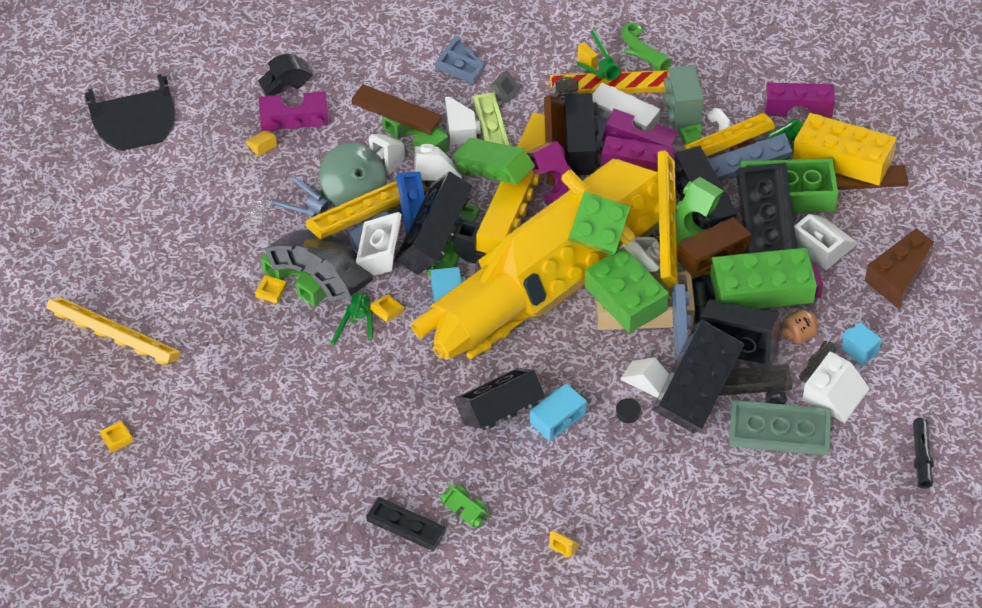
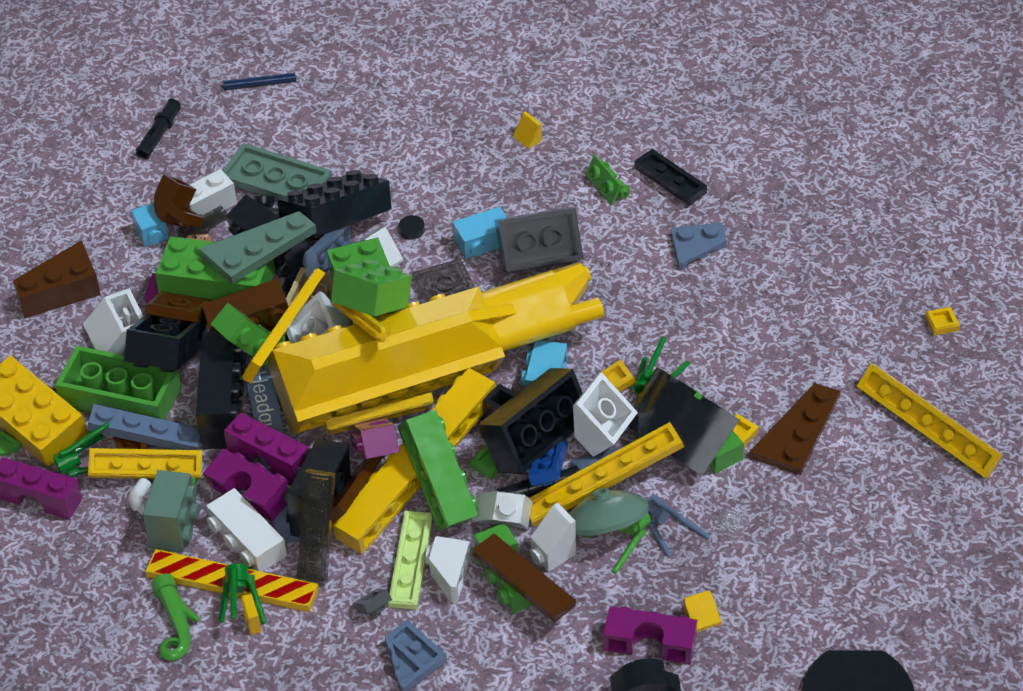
camera: 160 degrees left, 5 degrees down
(221, 301) = (798, 431): none -> reddish brown wing
(359, 462) = (697, 242): none -> sand blue wing
(570, 360) = (442, 279): none -> clear smoke tile
(731, 281) = (255, 247): none -> sand green wing
(774, 234) = (176, 306): none -> reddish brown tile
(840, 341) = (173, 200): none -> reddish brown brick
(862, 541) = (259, 81): none -> dark blue bar

